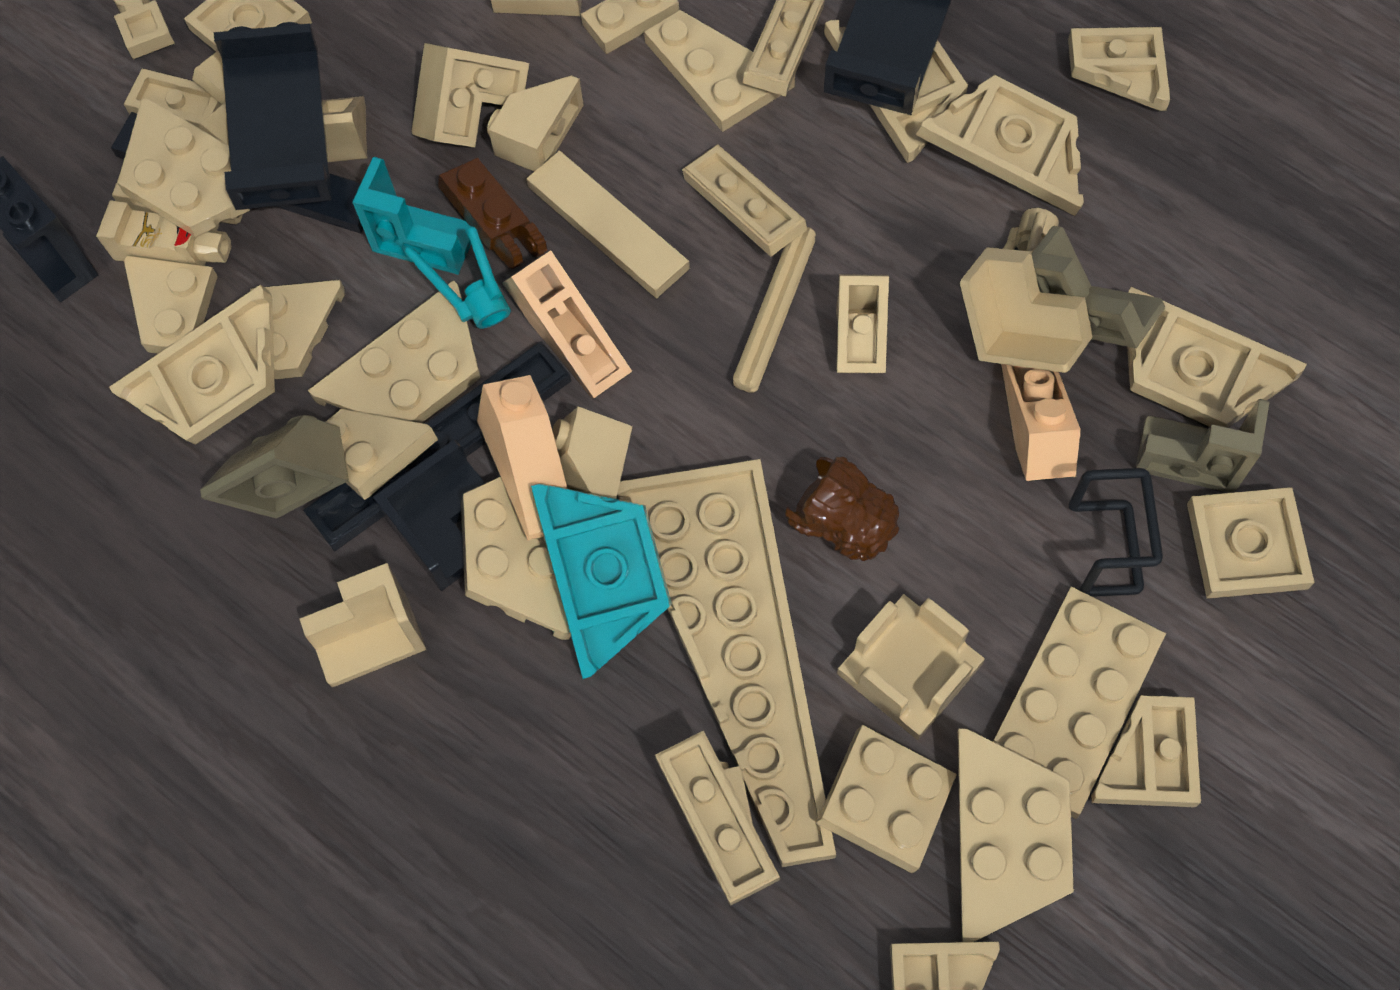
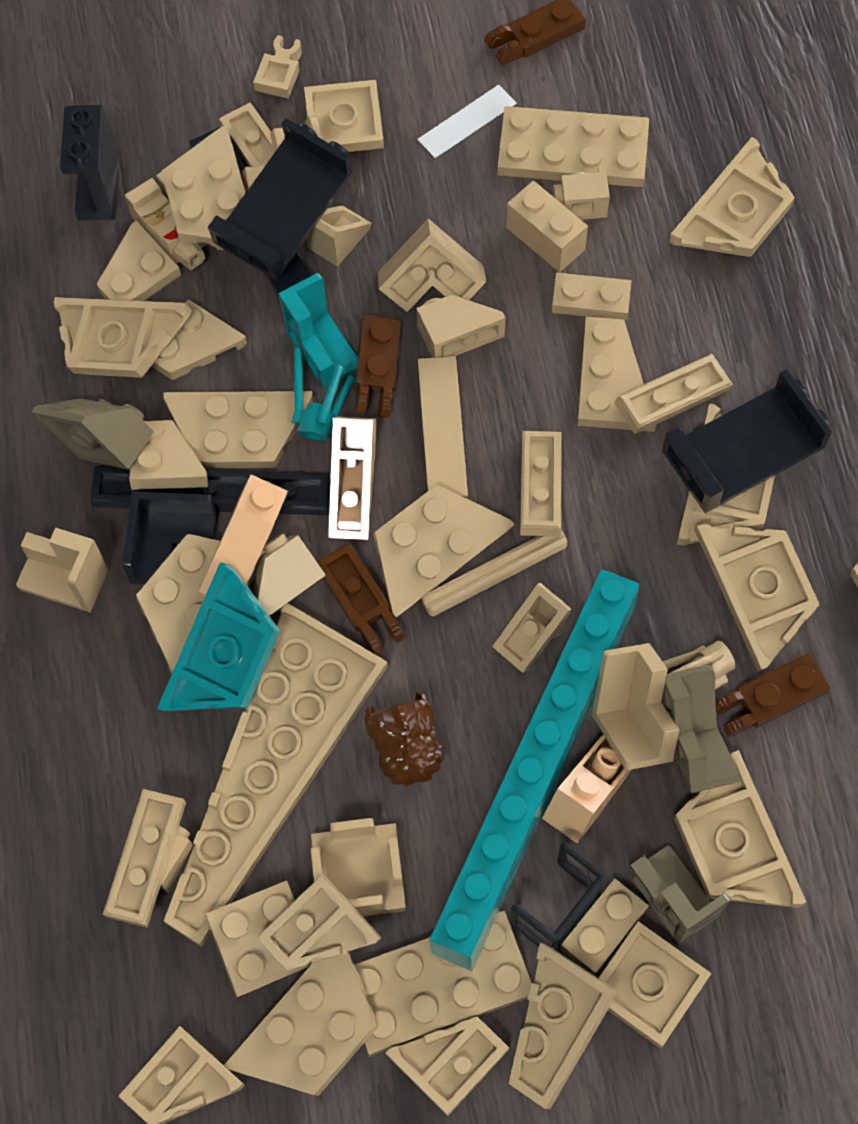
camera: 40 degrees right, 0 degrees up
(679, 425) = (359, 596): none -> reddish brown hinge
(697, 327) = (432, 543): none -> tan wing
(939, 737) = (317, 927): none -> tan wing
(990, 447) = (533, 774): none -> teal brick
(1110, 218) = (774, 694): none -> reddish brown hinge
(1174, 529) = (604, 926): none -> tan plate
(1216, 640) = (558, 1025): none -> tan wing

